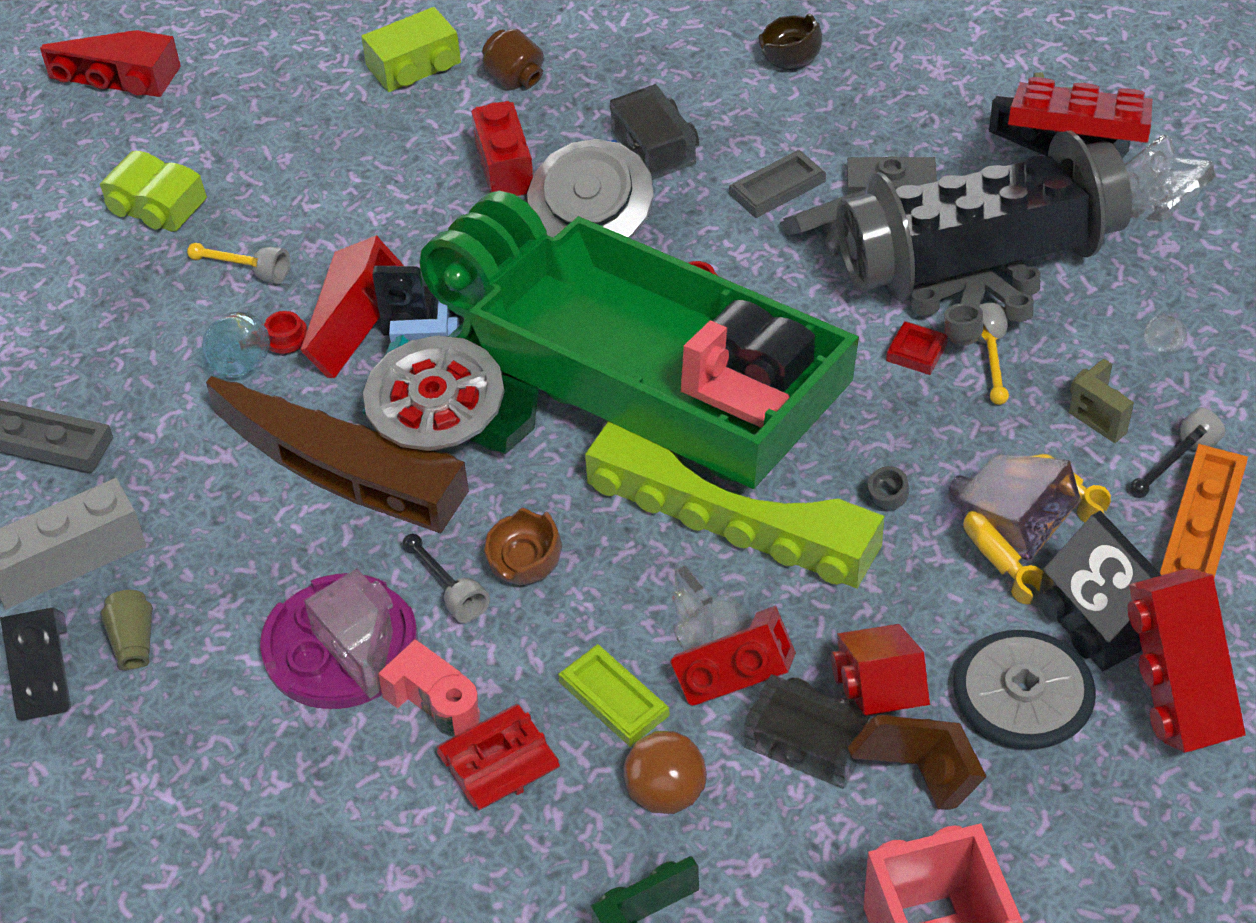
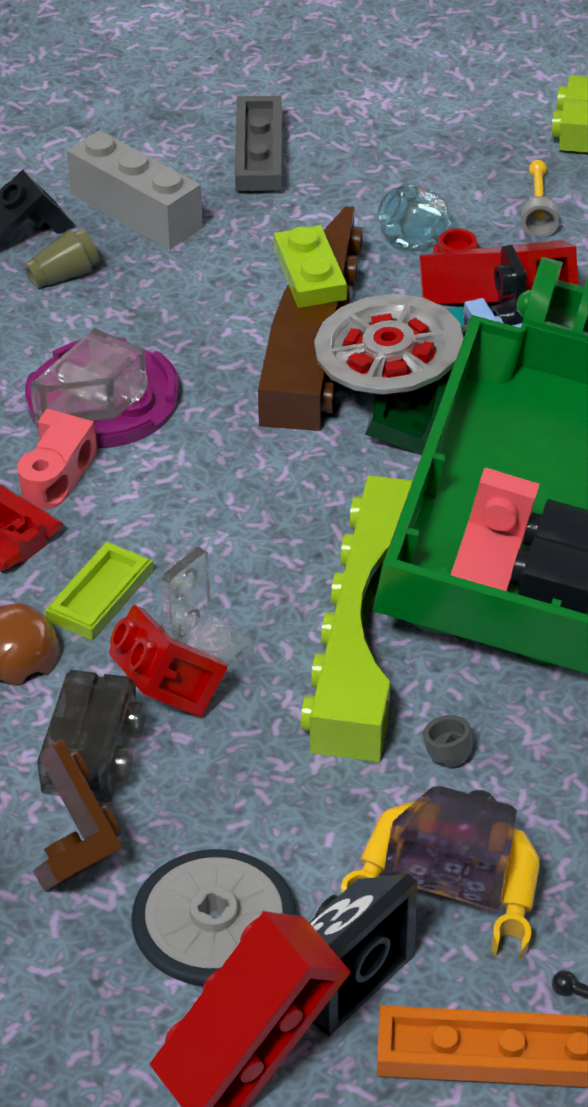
camera: 70 degrees right, 5 degrees down
(289, 423) = (309, 266): none -> lime plate
(457, 590) = (175, 454): light grey hinge -> none
(523, 547) = (244, 475): dark orange hair -> none
(881, 669) = (165, 763): red brick -> none

